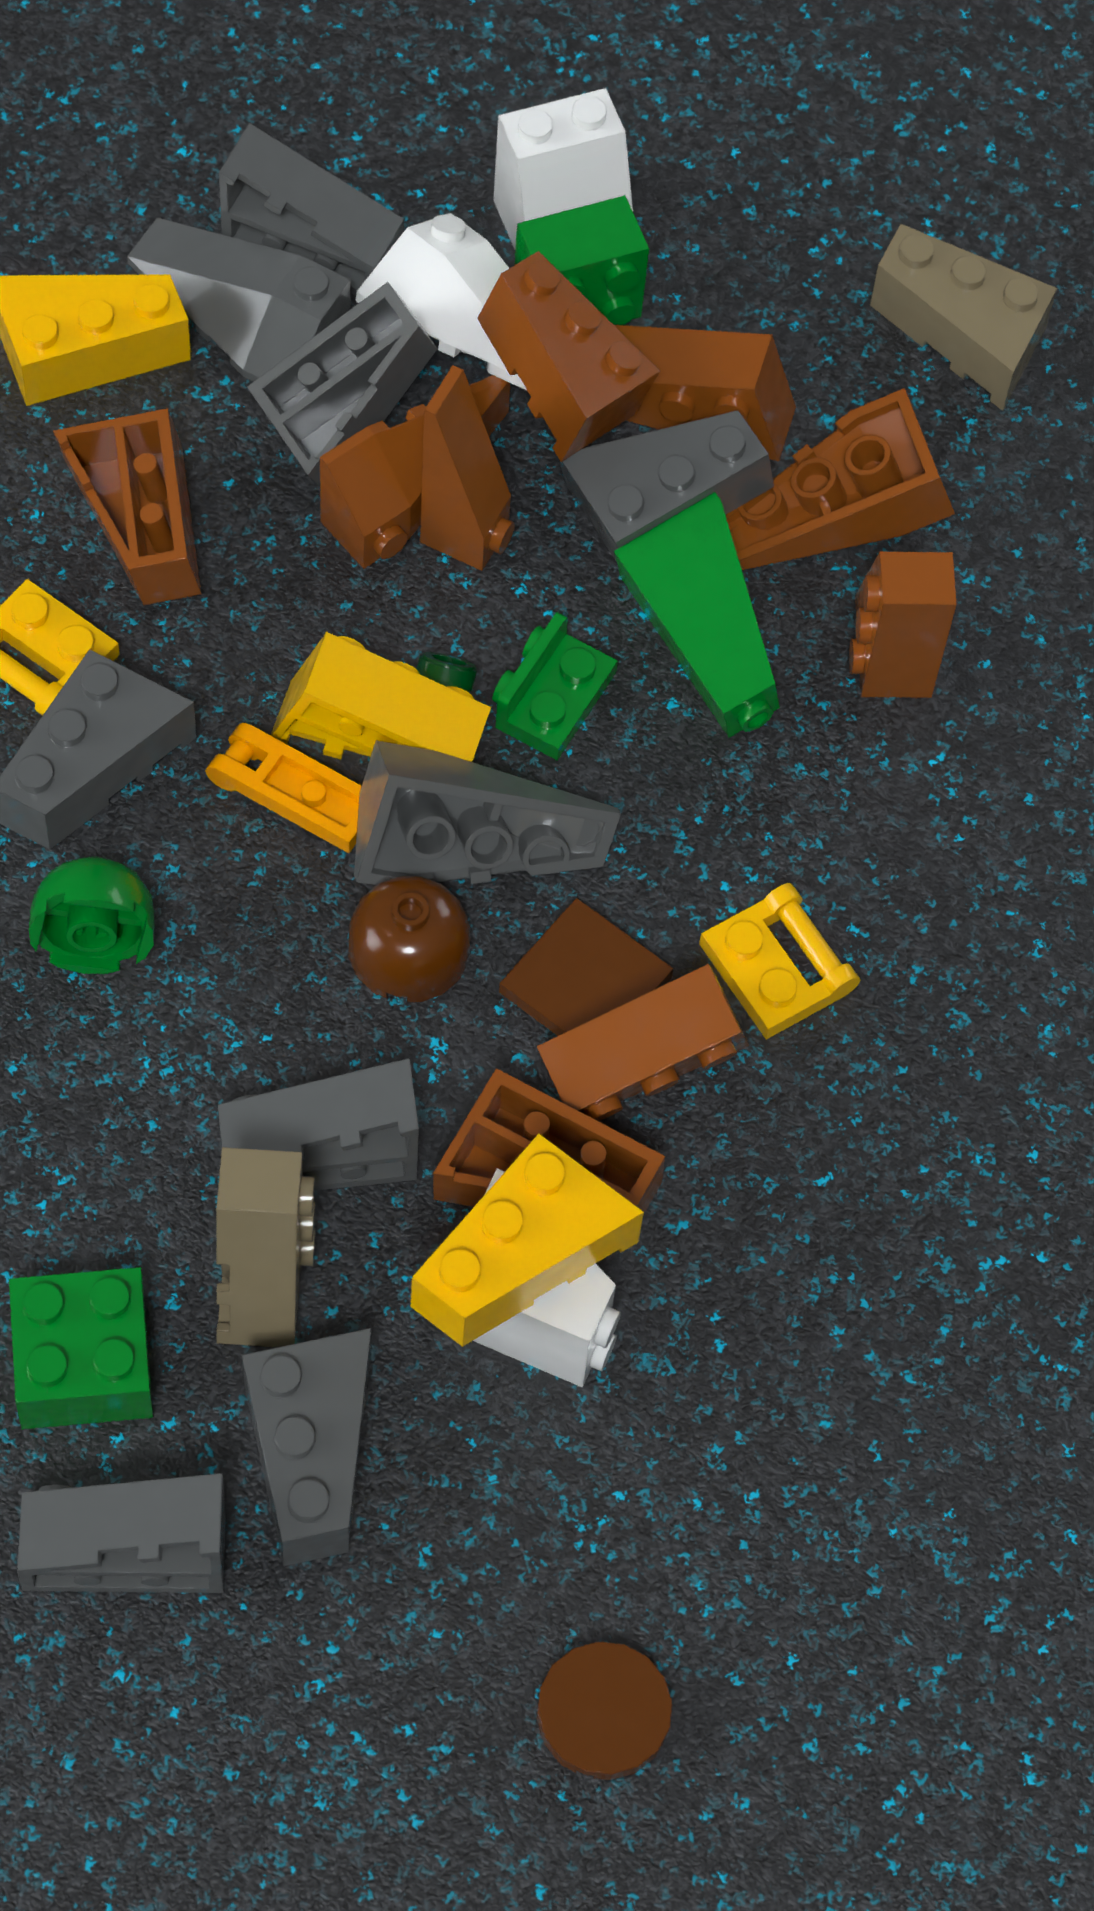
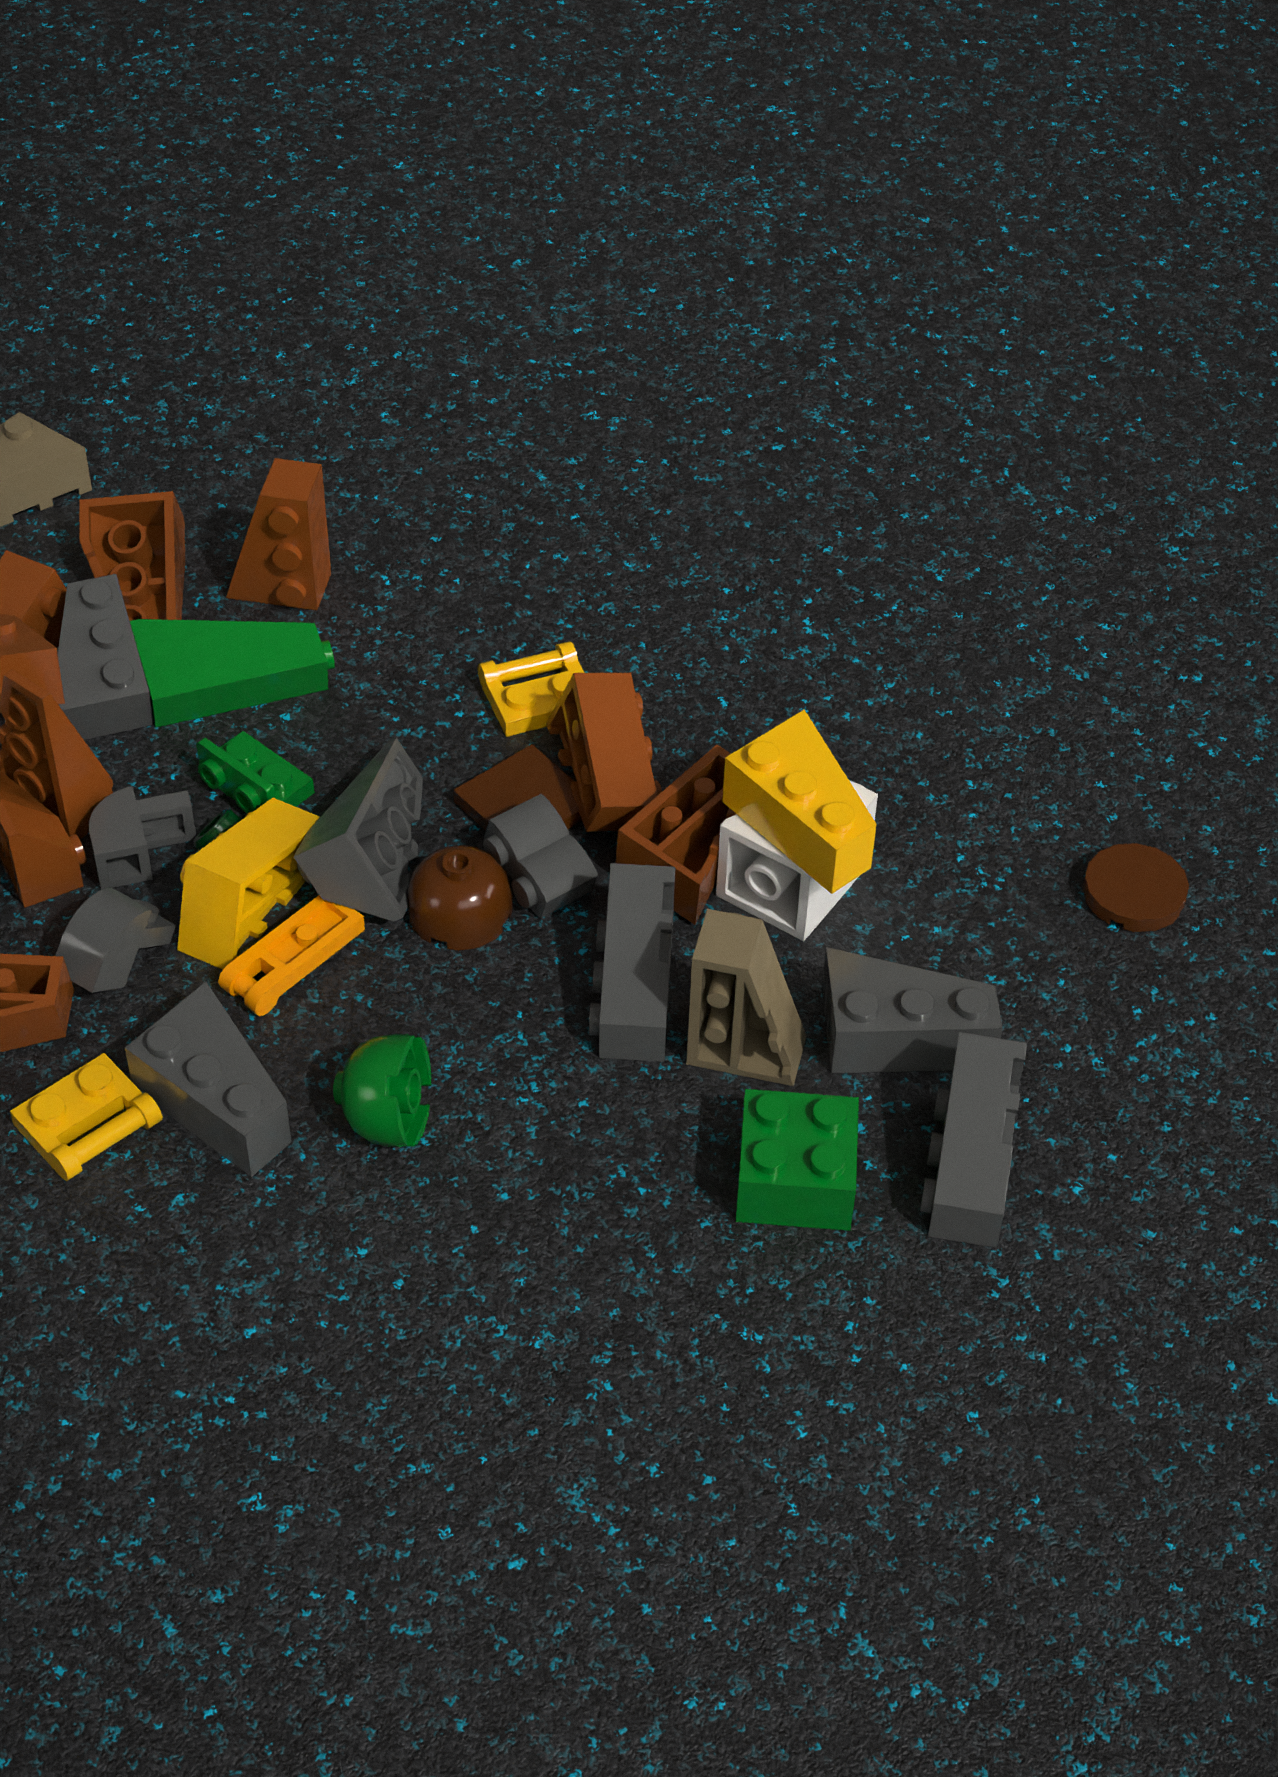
camera: 75 degrees left, 15 degrees down
(261, 598) = (106, 937): none -> dark grey brick
(424, 579) = (127, 827): none -> dark grey brick
(476, 1003) = (539, 856): none -> dark grey brick

